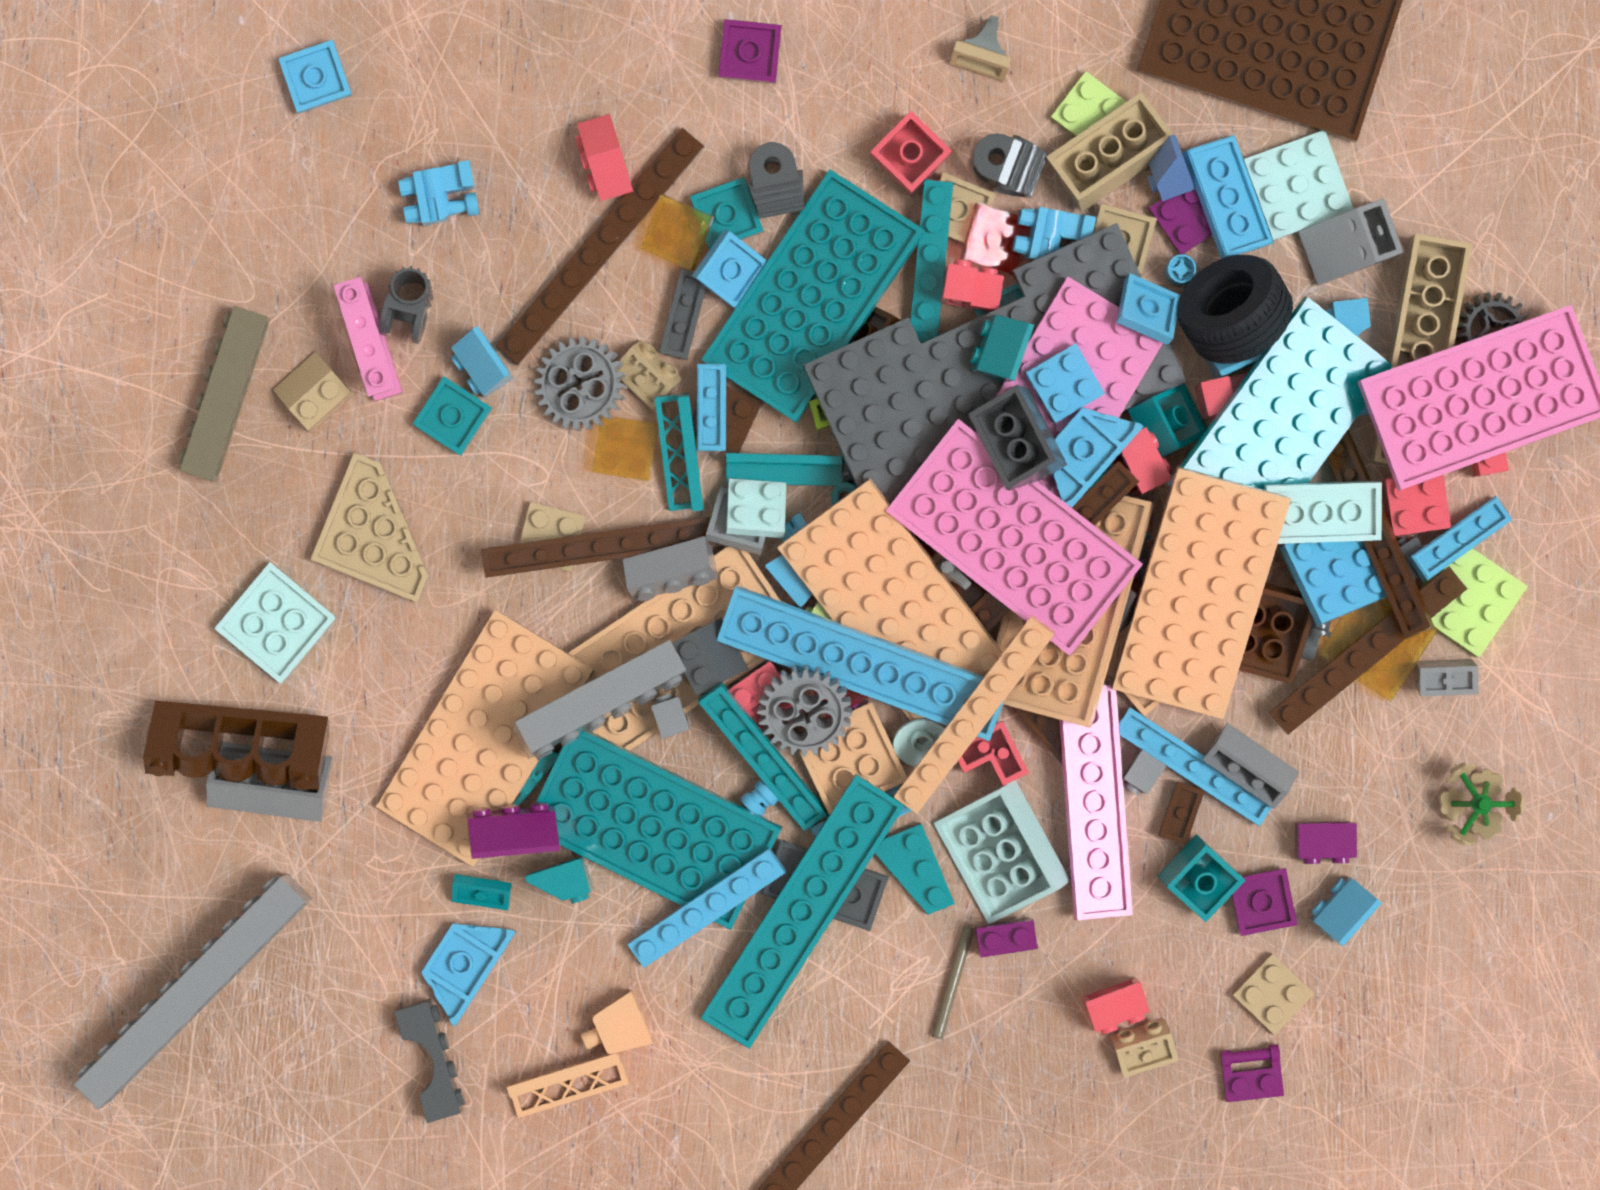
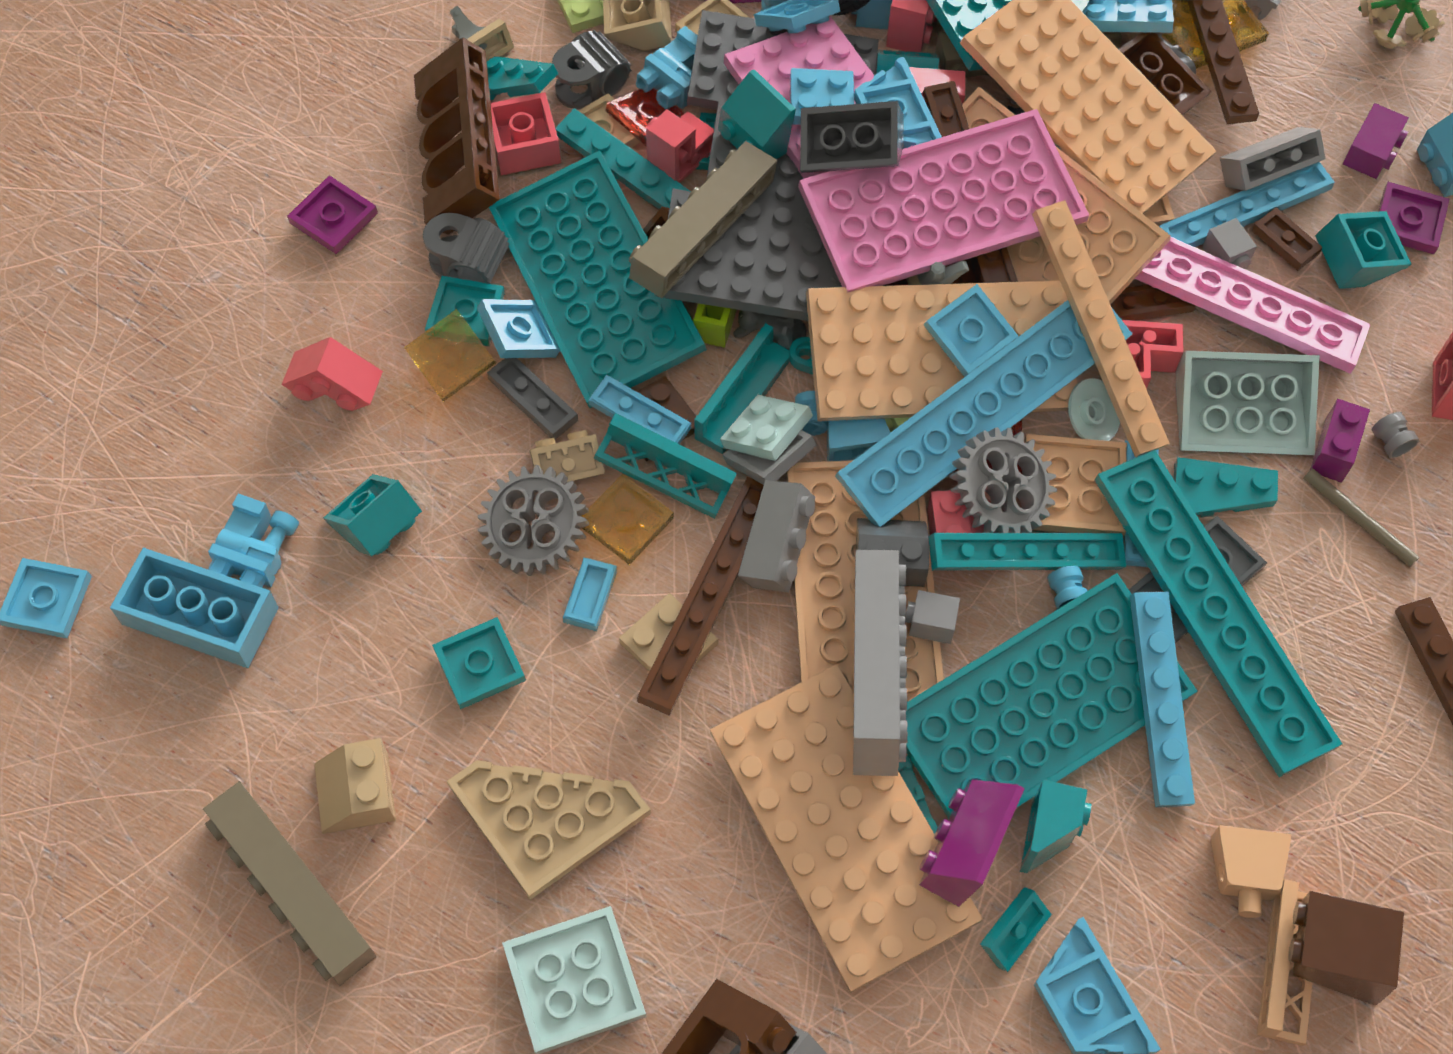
camera: 60 degrees left, 25 degrees down
(368, 192) = (195, 607): none -> medium azure brick
(368, 345) = (339, 687): bright pink fence -> none
(407, 311) = (319, 616): dark grey piece -> none
(480, 362) = (444, 594): medium azure slope -> none
(517, 263) = (374, 514): none -> teal slope
(553, 458) = (590, 594): none -> medium azure tile
(590, 1112) = (1347, 946): none -> reddish brown slope
(600, 246) = (415, 442): reddish brown plate -> none
(883, 364) = (702, 219): none -> dark tan brick
(910, 620) = (970, 330): none -> medium azure plate
(911, 52) = (454, 74): none -> reddish brown fence
(957, 106) = (518, 76): none -> teal wing
(1040, 970) = (1395, 435): none -> light grey wheel

